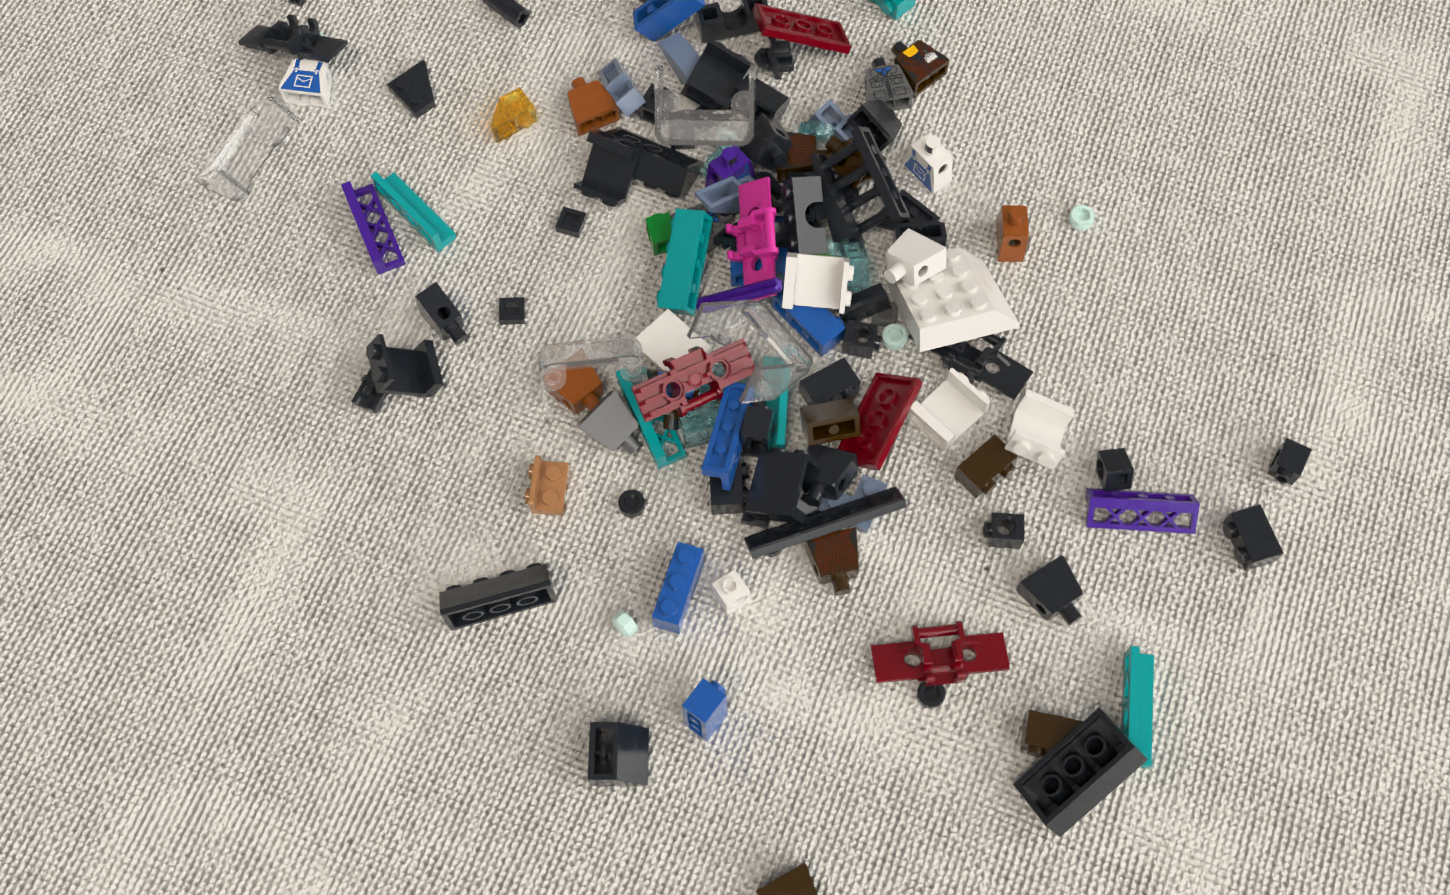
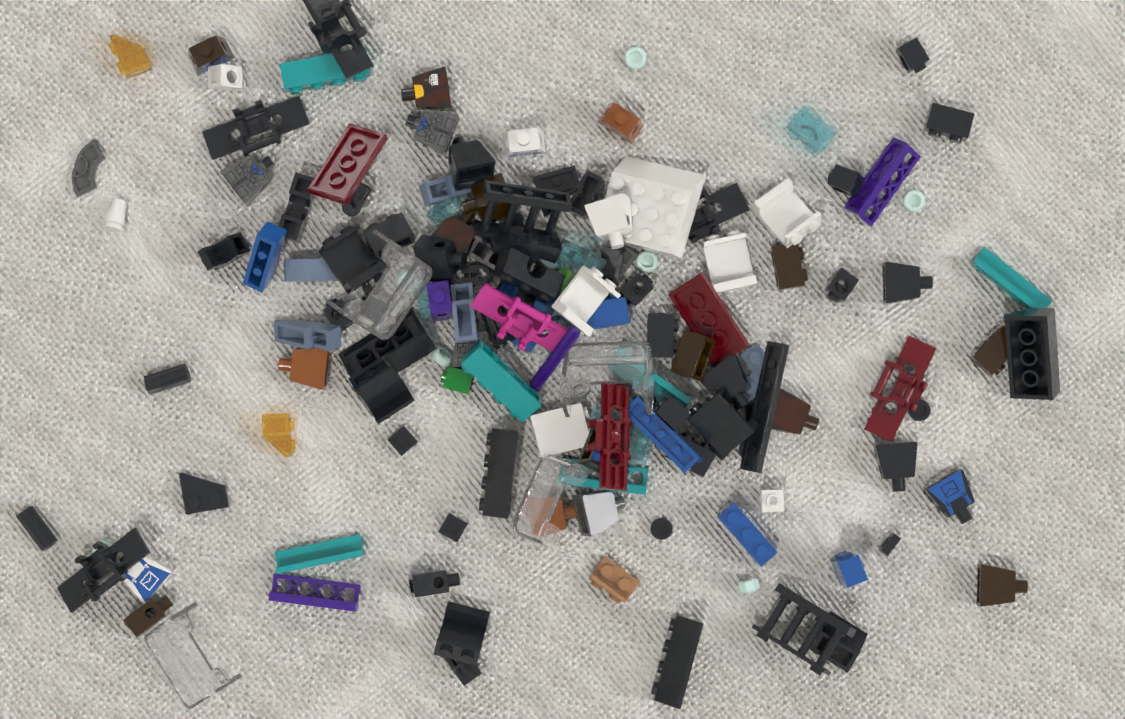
camera: 60 degrees left, 20 degrees up
(257, 87) = (140, 623): none -> dark brown torso
(596, 316) = (499, 473): none -> black slope
(631, 713) = (822, 619): none -> black fence
(674, 202) = (442, 356): none -> light aqua tile
(762, 747) = (889, 544): none -> black tile
(858, 700) = (896, 462): none -> black torso
(861, 785) = (952, 496): none -> torso
(1137, 409) = (810, 130): none -> clear light blue brick
(1145, 555) = (914, 201): none -> light aqua tile

